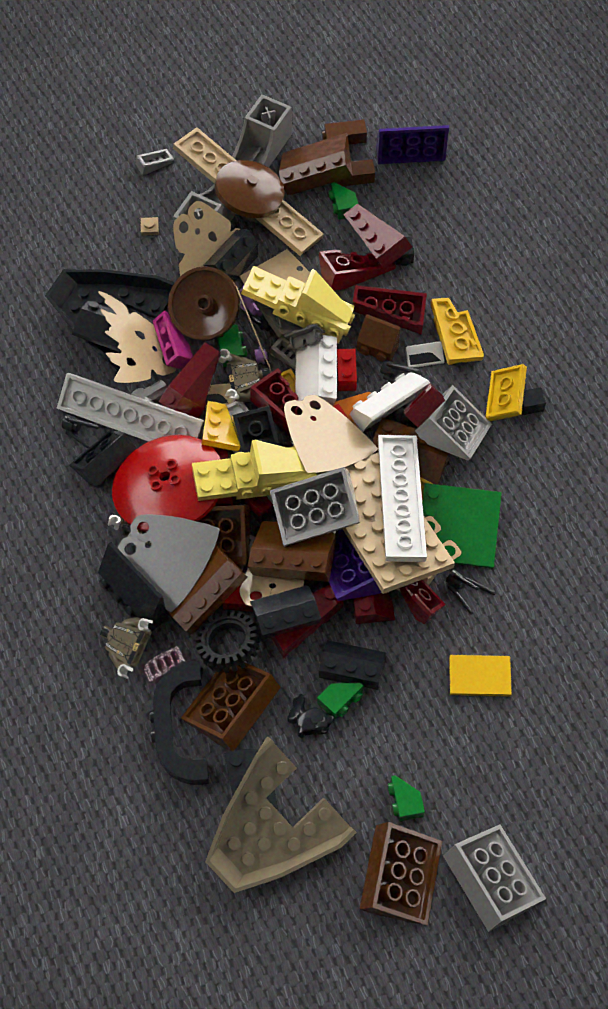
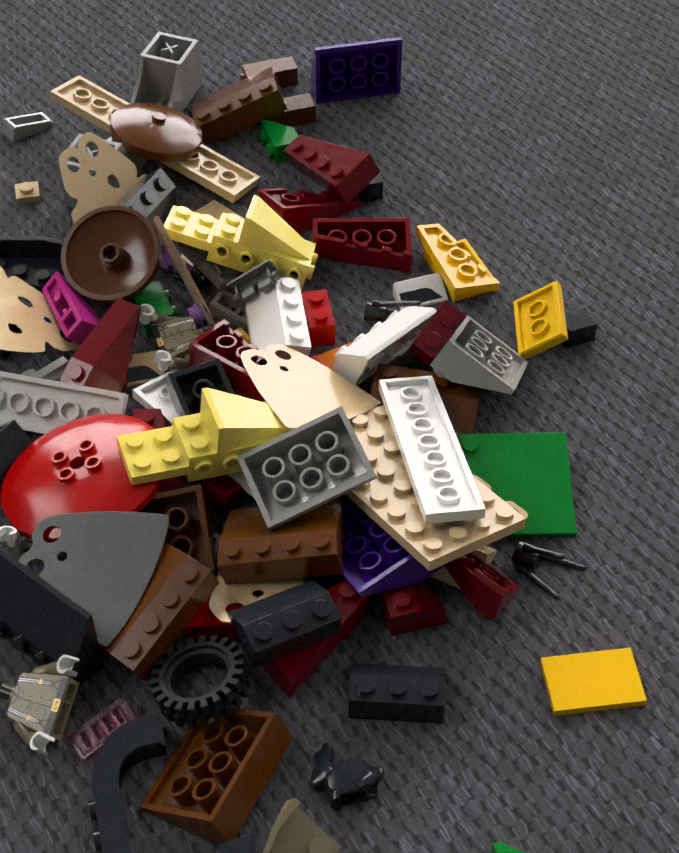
camera: 10 degrees left, 15 degrees down
(219, 428) = (150, 399): yellow wing -> none
(338, 697) = (386, 738): green slope -> none
(378, 338) = (355, 275): reddish brown slope -> none

